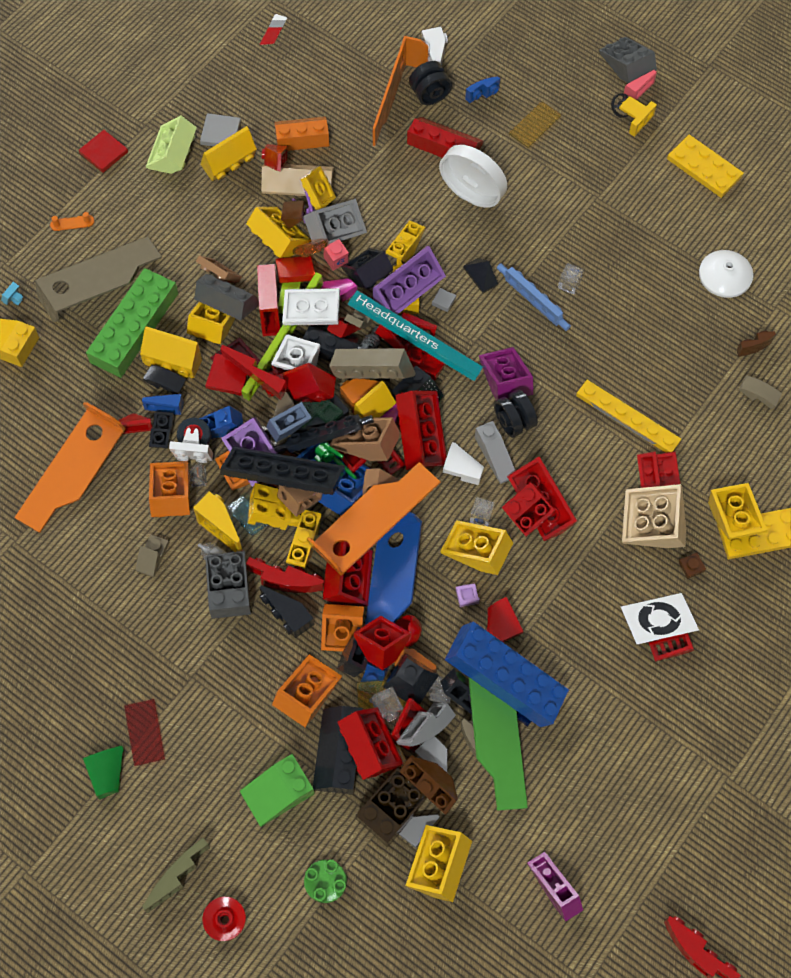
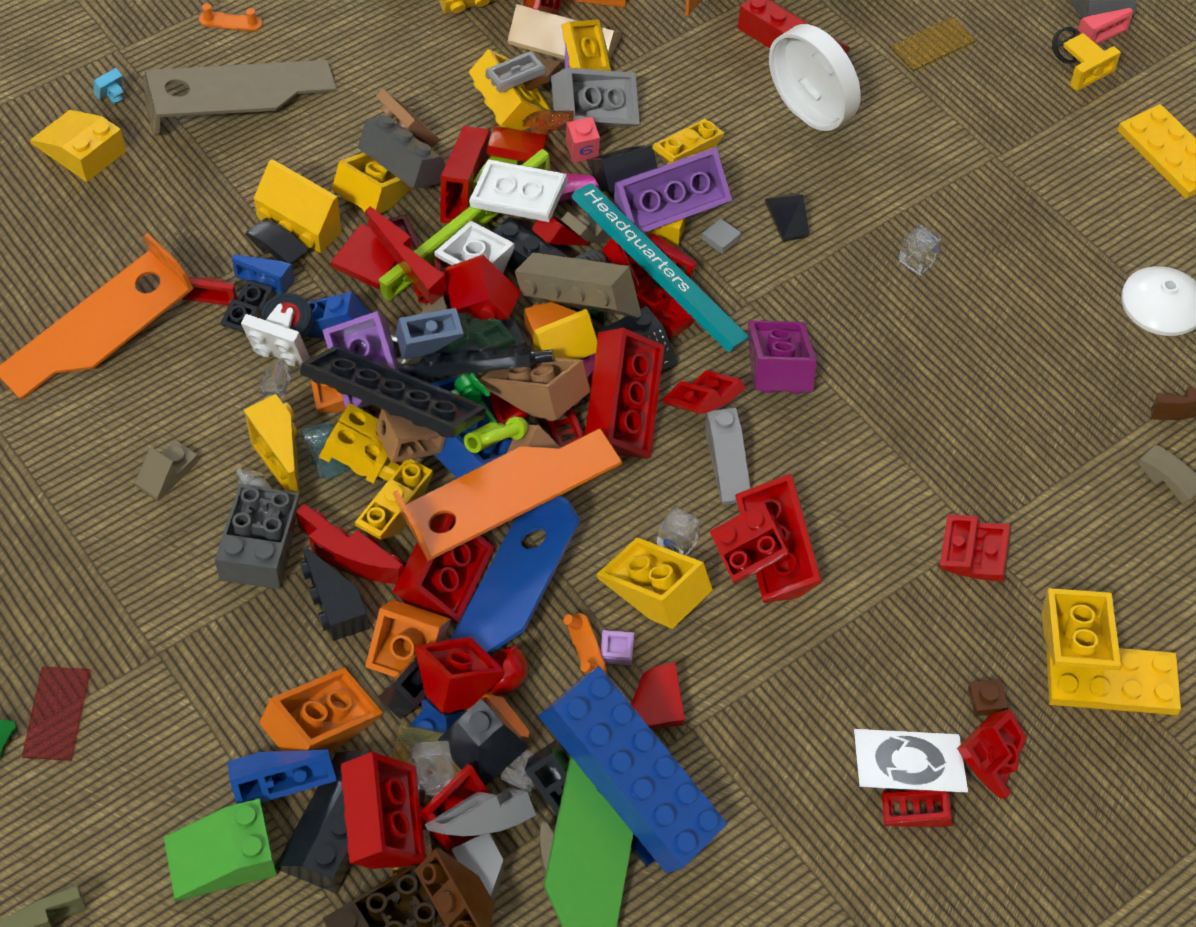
camera: 15 degrees right, 10 degrees down
(124, 331) = (230, 176): bright green brick -> none
(169, 489) = (224, 386): orange slope -> none
(282, 222) = (517, 74): none -> light grey tile
(296, 734) = (279, 773): none -> blue slope
(351, 480) = (493, 433): none -> lime plant
(451, 602) = (585, 642): none -> orange piece
(462, 465) = (673, 462): white slope -> none
(469, 414) = (705, 393): none -> red slope
(515, 413) = (774, 407): black wheel -> none
(534, 296) = (857, 260): medium blue plate -> none
(628, 417) = (951, 460): yellow plate -> none
(655, 517) = (948, 610): tan slope -> none
(705, 598) = (994, 751): none -> red slope

